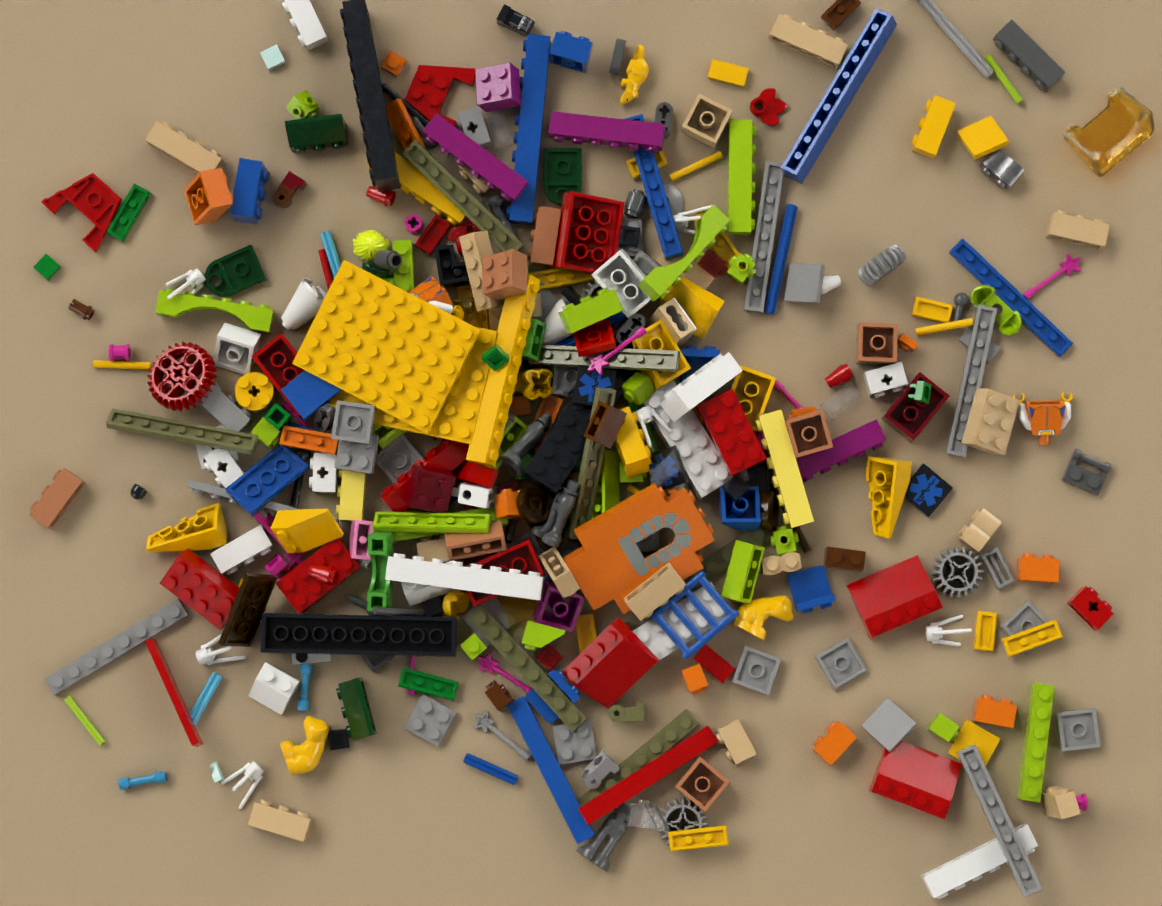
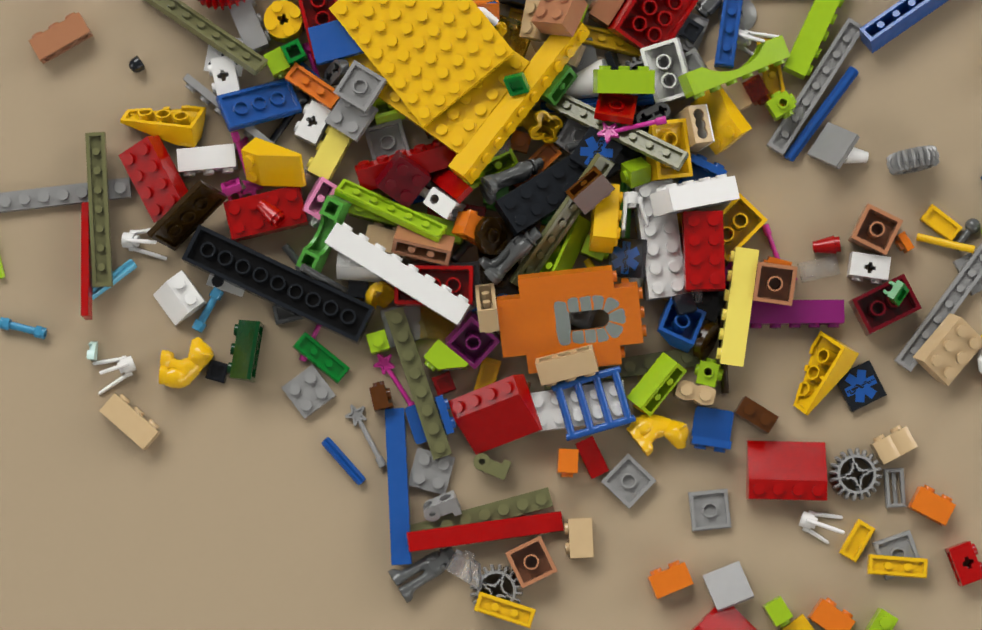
camera: 25 degrees right, 0 degrees up
(164, 640) = (99, 209): none -> olive plate

